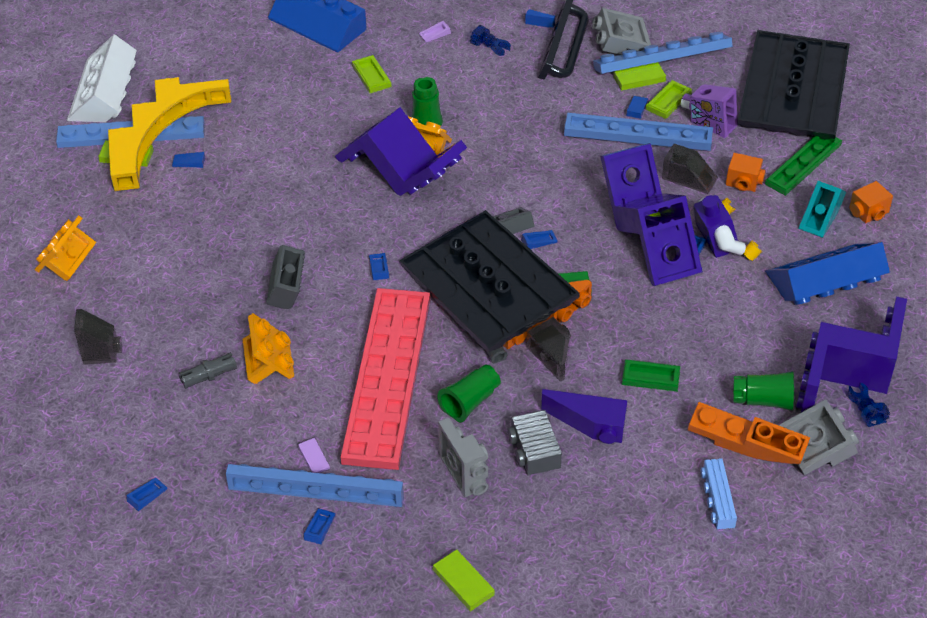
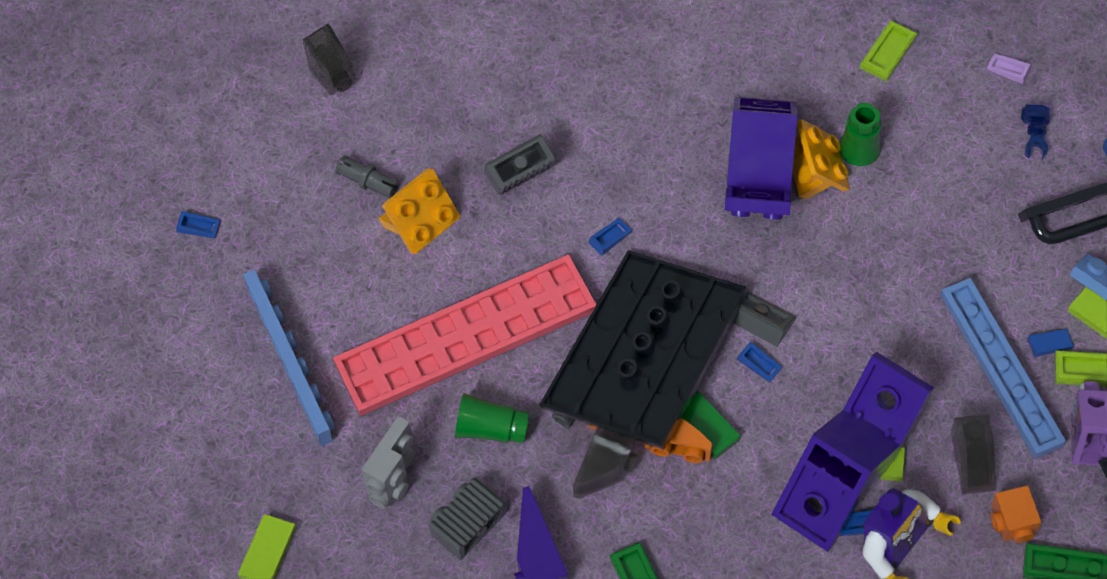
camera: 60 degrees right, 15 degrees up
(313, 456) = (328, 333): lavender piece -> none
(319, 526) = (252, 389): blue piece -> none

